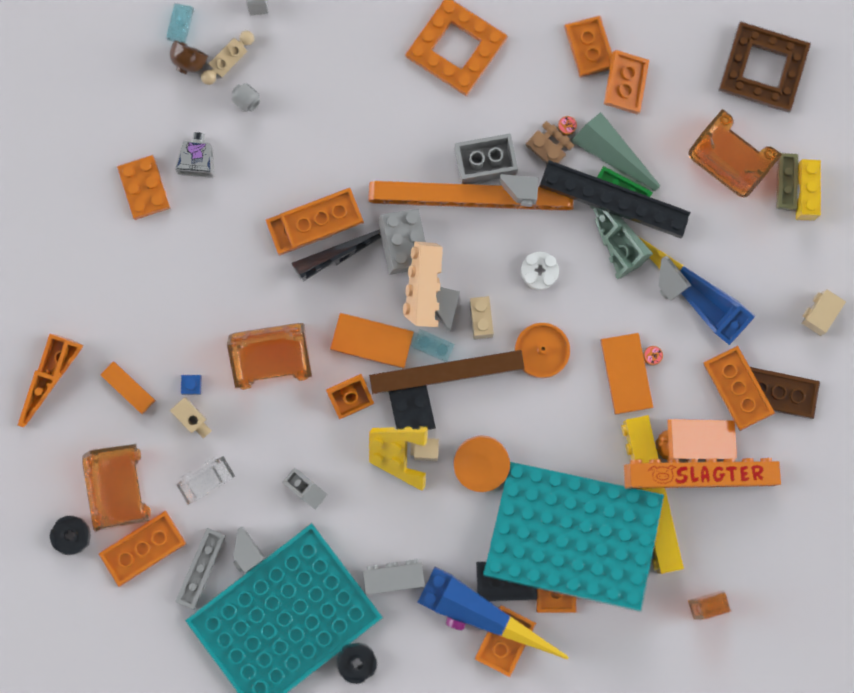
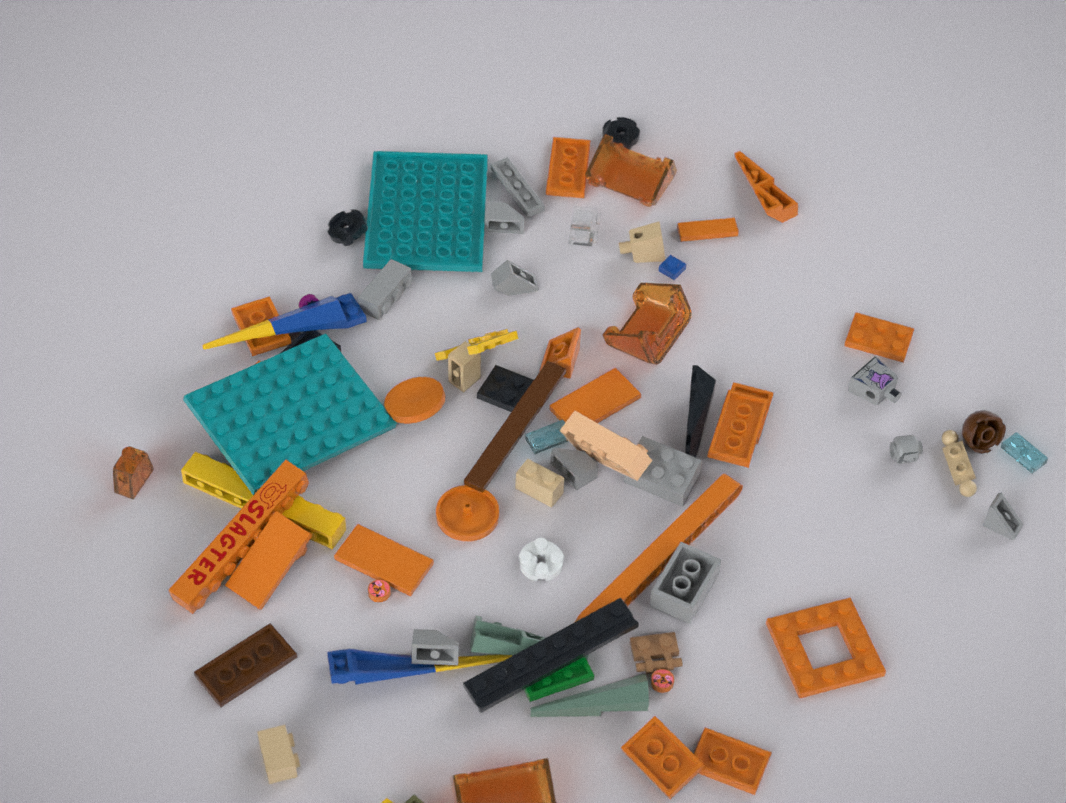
camera: 130 degrees right, 30 degrees down
(521, 188) = (630, 579): light grey slope -> none
(738, 388) = (282, 629): orange tile -> none

